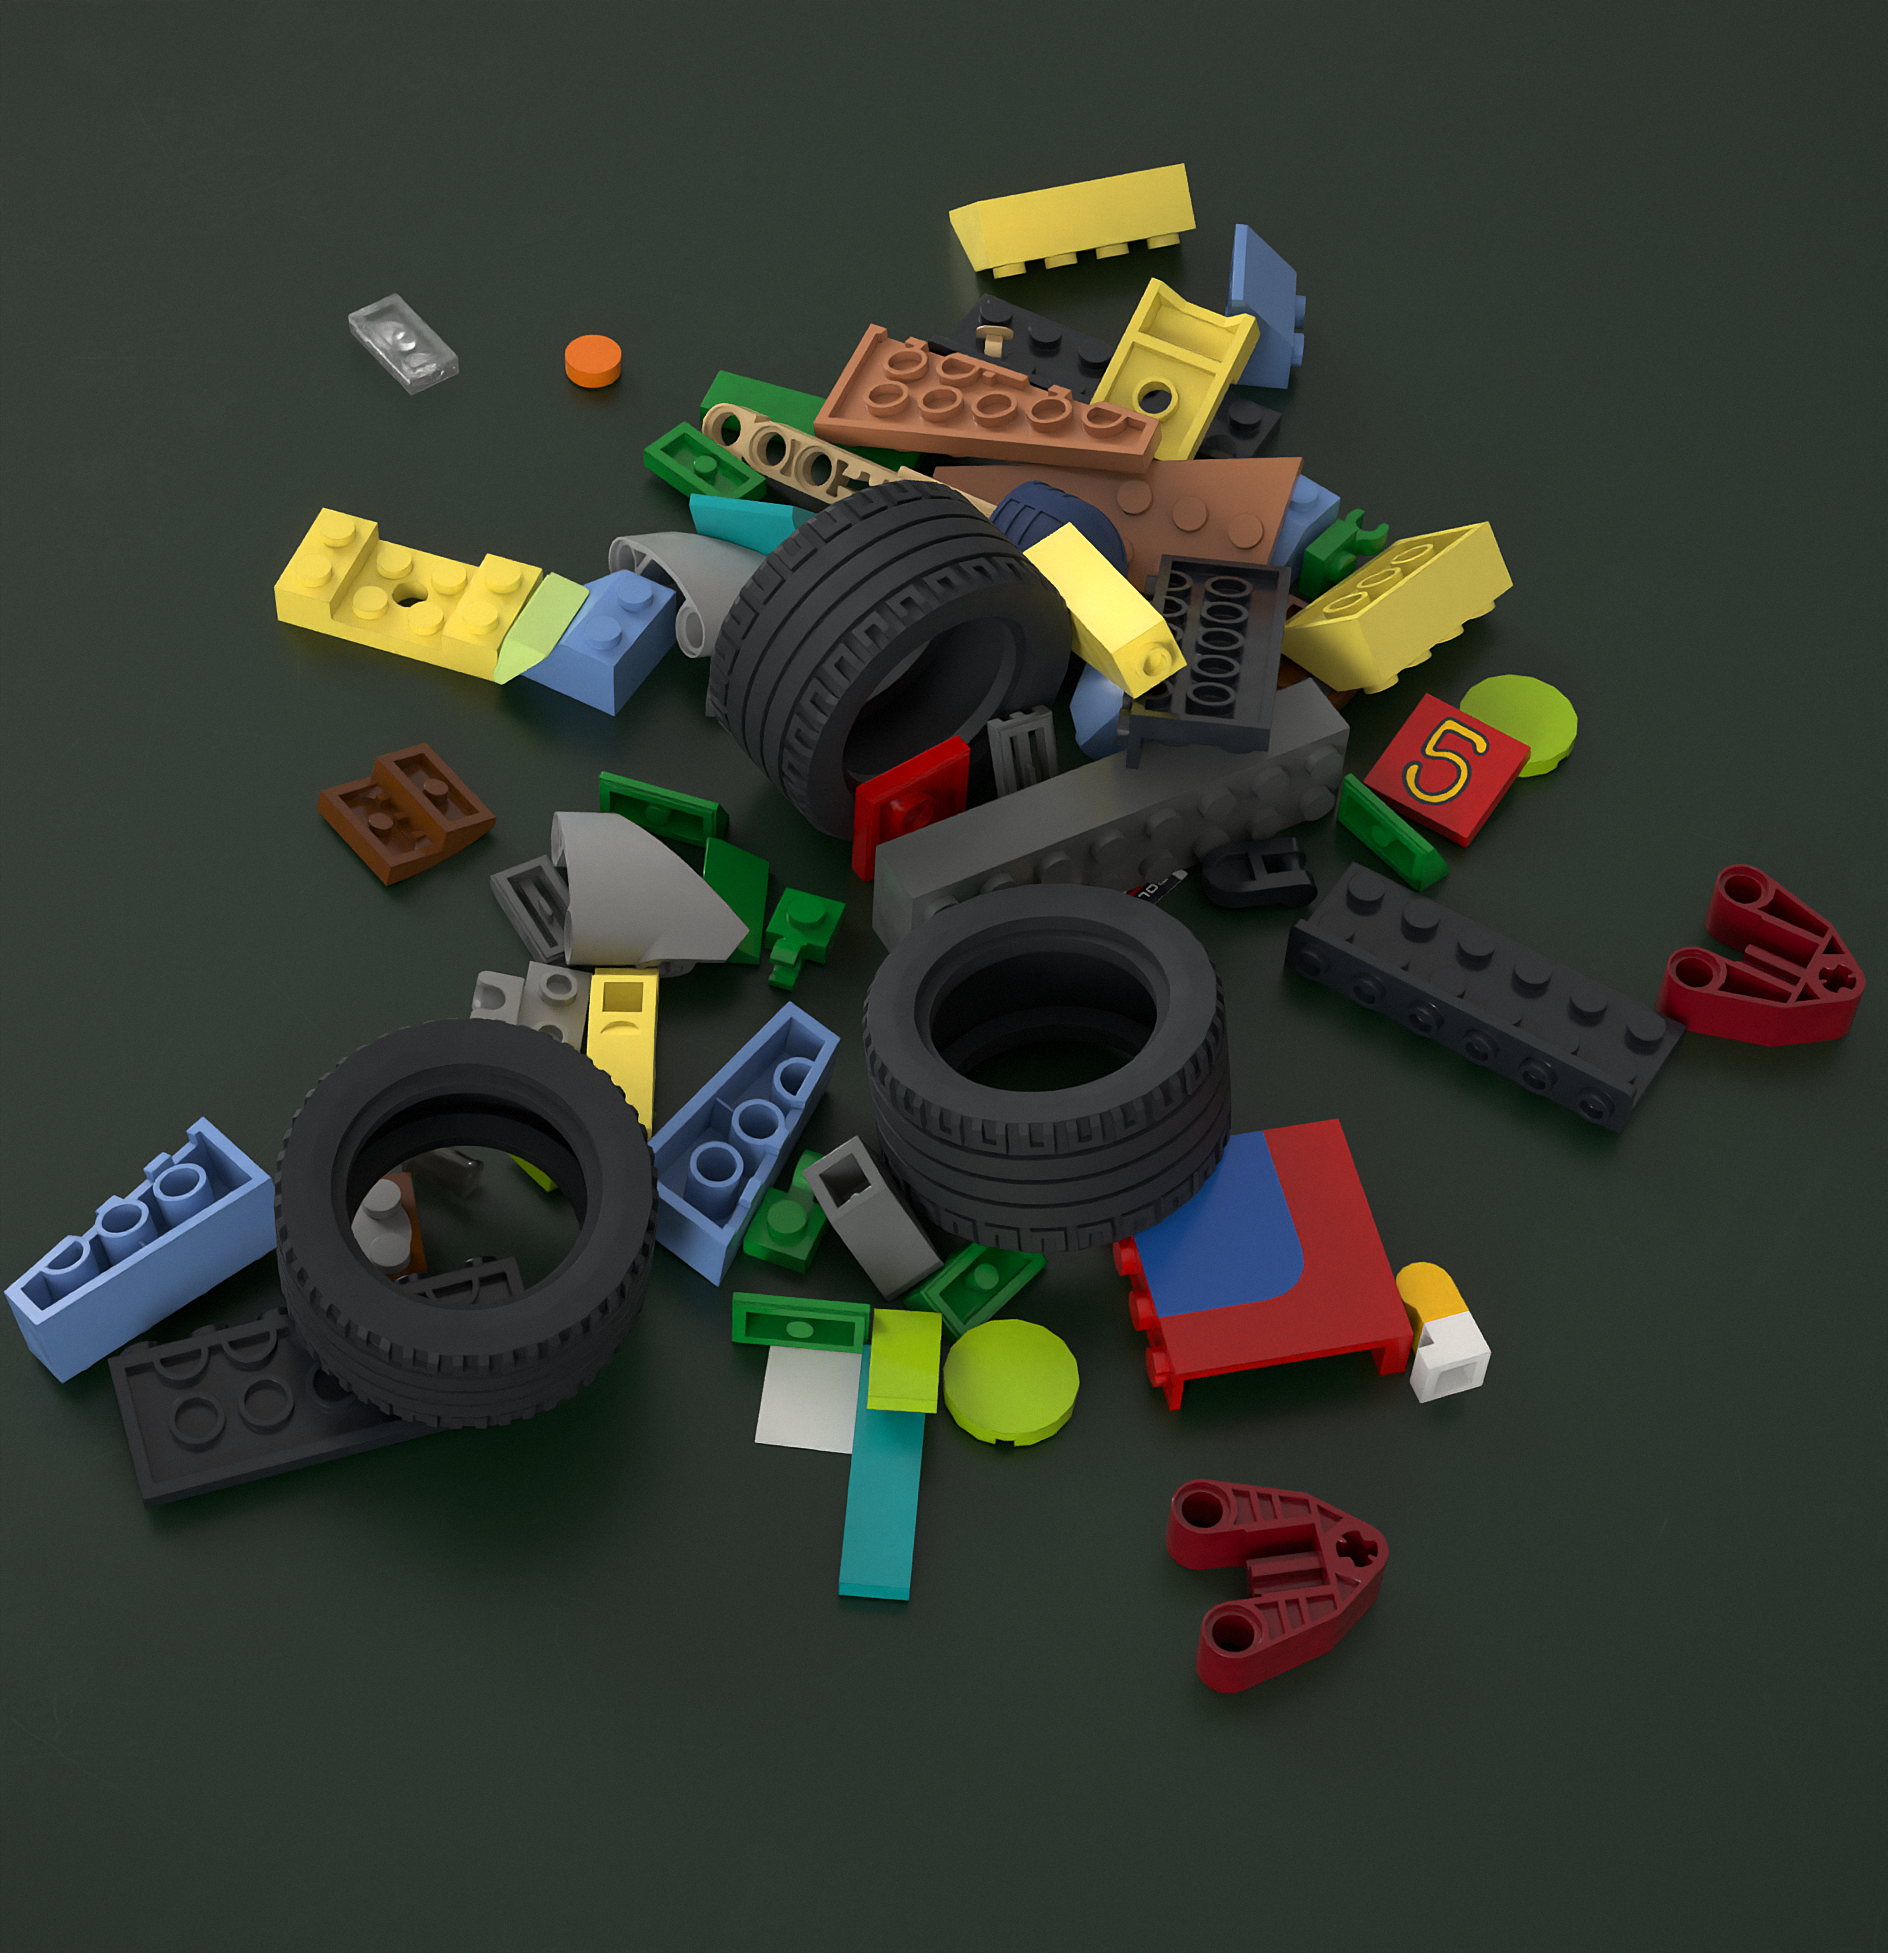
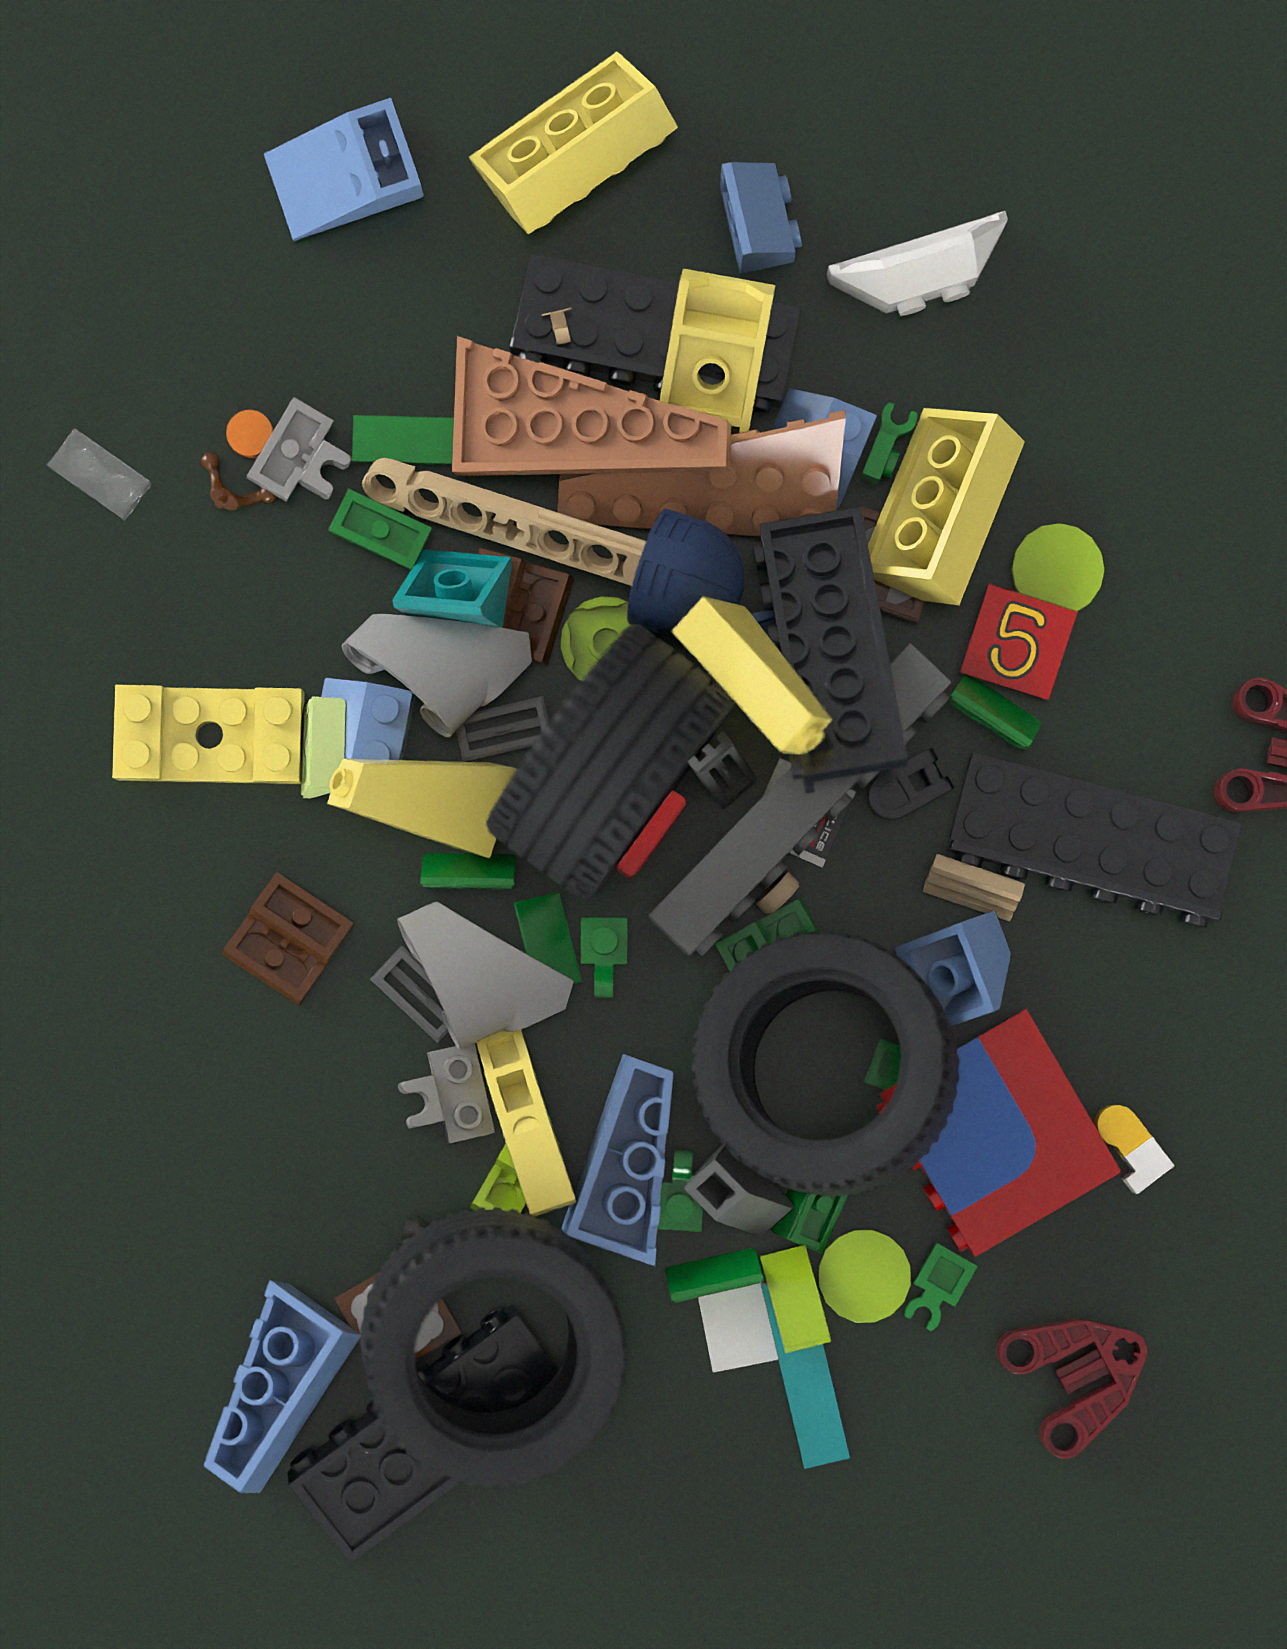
camera: 15 degrees left, 35 degrees up
(541, 401) = (224, 497): none -> reddish brown piece
(634, 682) = (425, 797): none -> light yellow slope
(641, 377) = (298, 453): none -> light grey plate
(809, 171) = (344, 170): none -> medium blue slope
(1114, 1410) = (943, 1279): none -> green plate
(1262, 967) = (973, 887): none -> tan tile
(1275, 1050) = (962, 966): none -> medium blue slope
(1438, 401) = (921, 268): none -> white wedge

